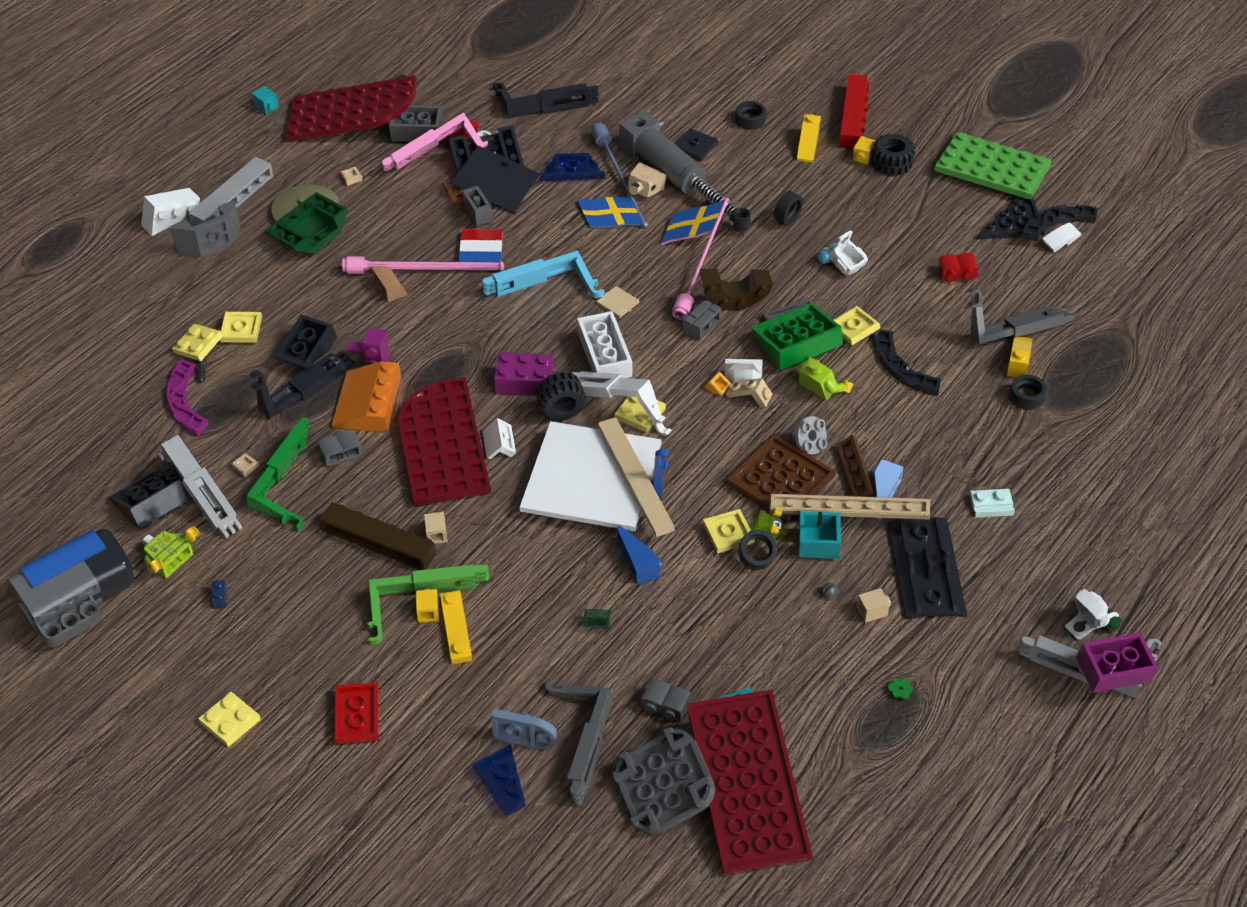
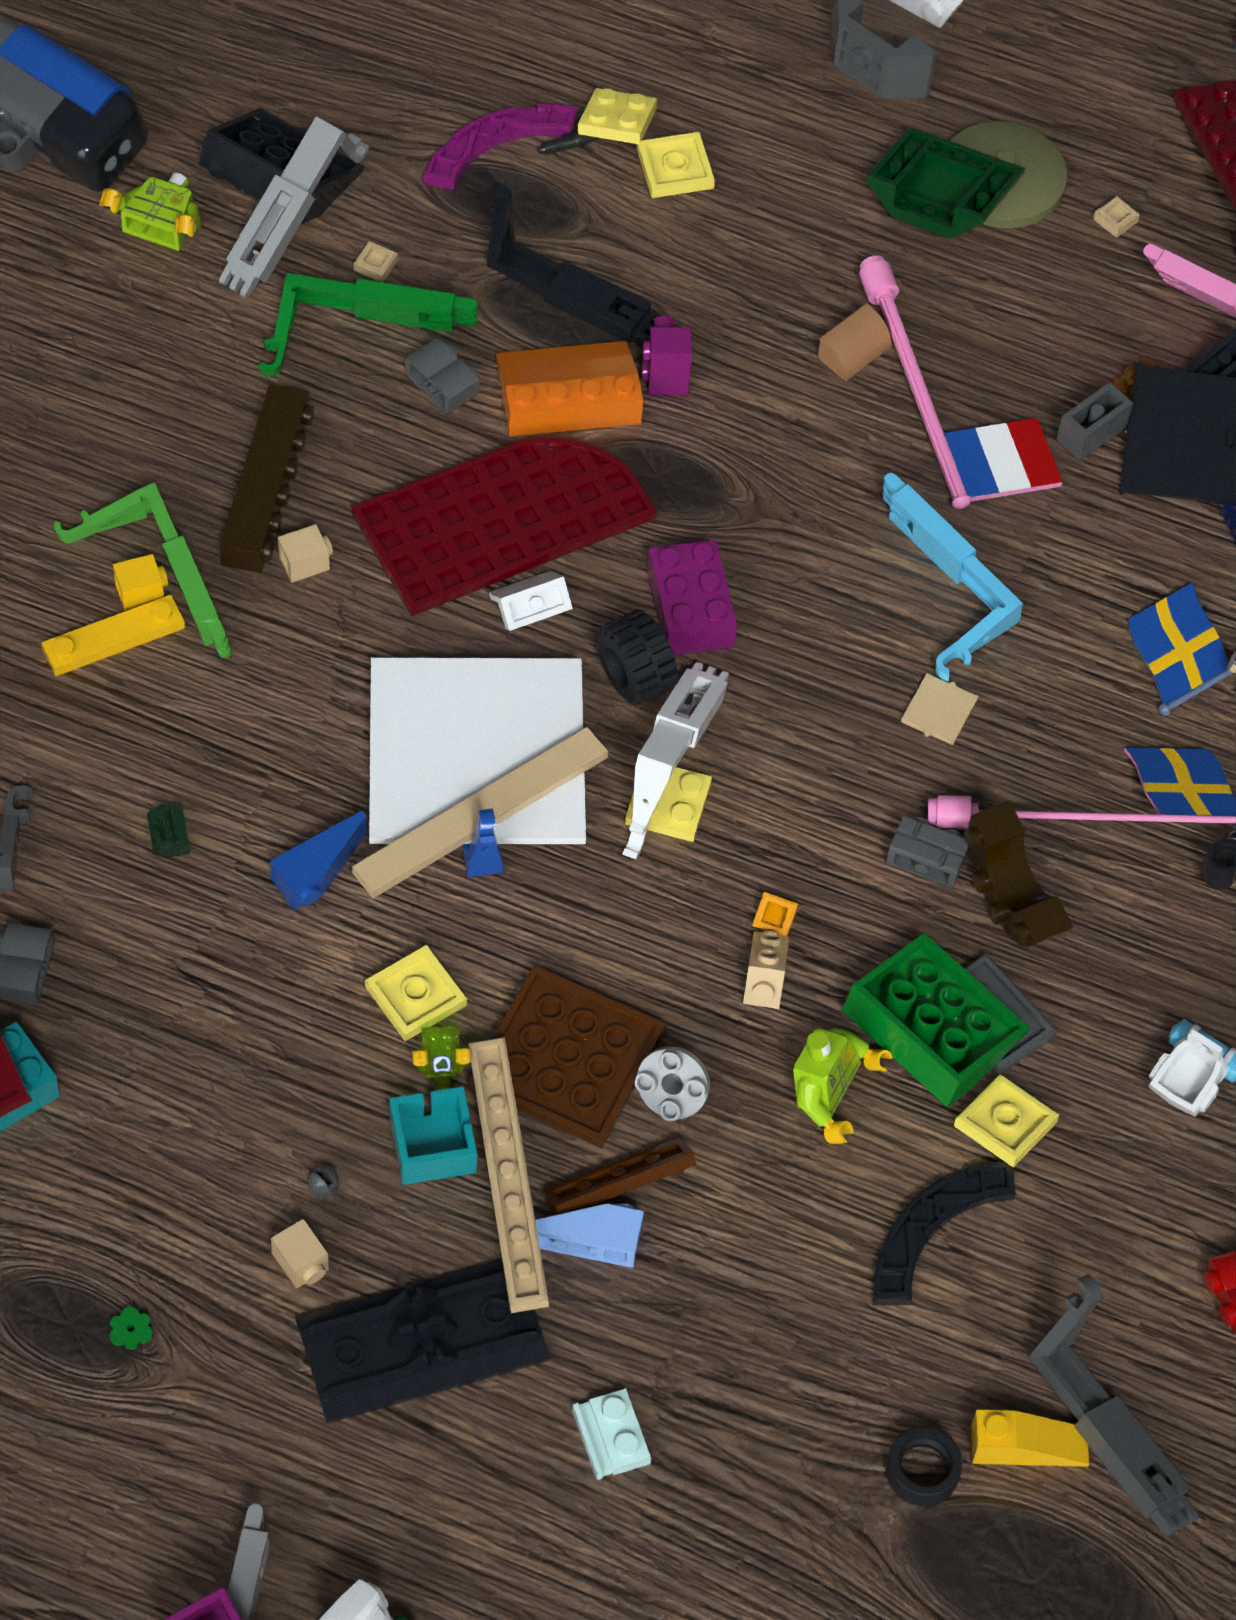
camera: 70 degrees right, 10 degrees up
(219, 594) = (100, 304): dark blue piece -> none
(236, 188) = (997, 57): light grey brick -> none
(306, 342) = (656, 261): black slope -> none
(604, 344) = (793, 704): white brick -> none
(743, 369) = (817, 947): white slope -> none
(765, 537) = (354, 1026): black tyre -> none

